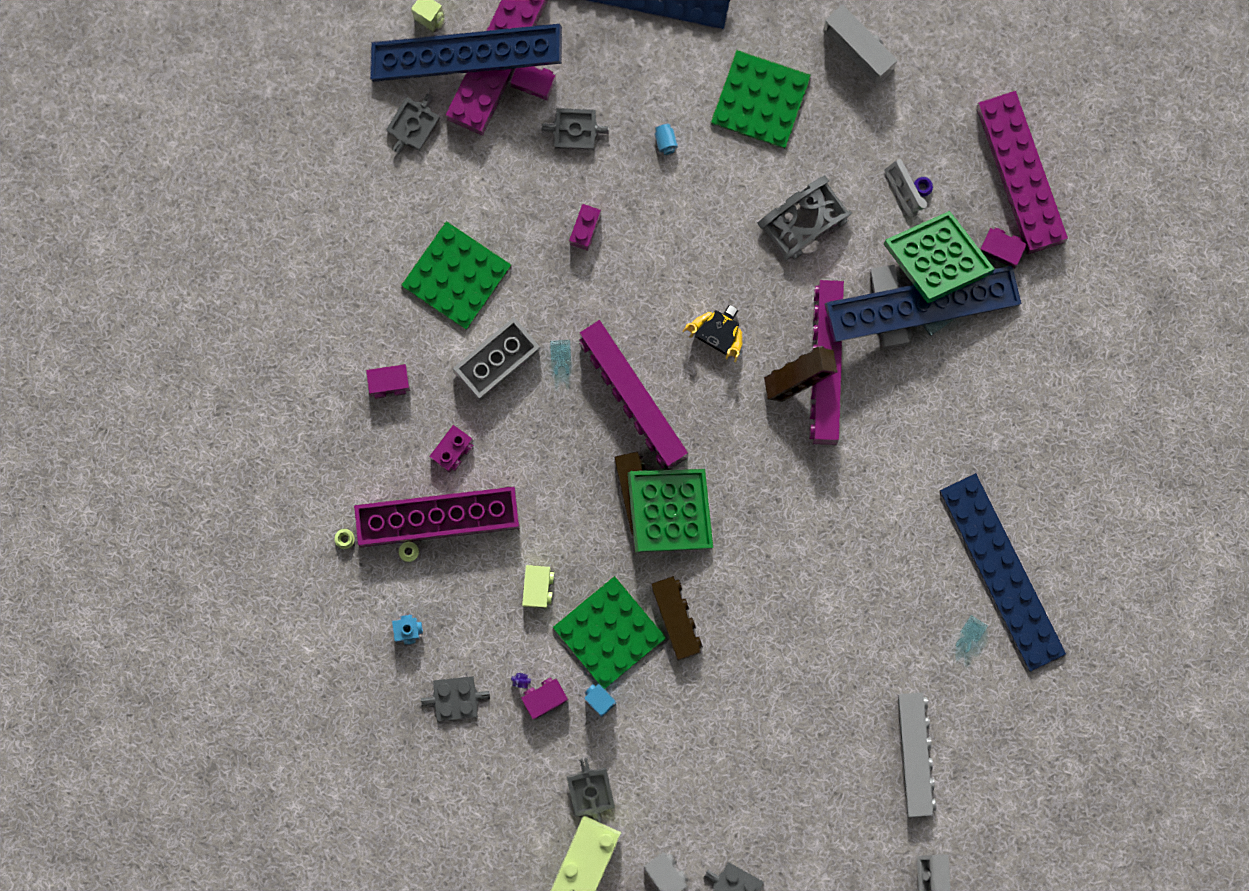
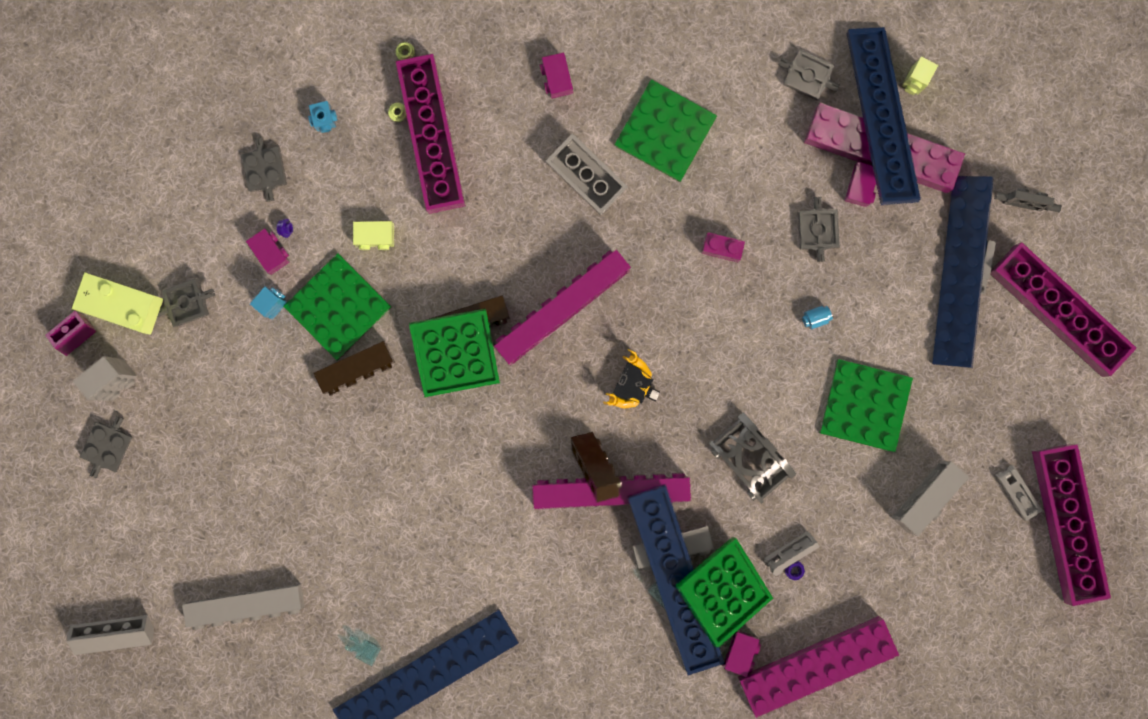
camera: 85 degrees right, 5 degrees up
(451, 449) = (498, 142): magenta brick -> none
(561, 353) = (599, 236): clear light blue plate -> none

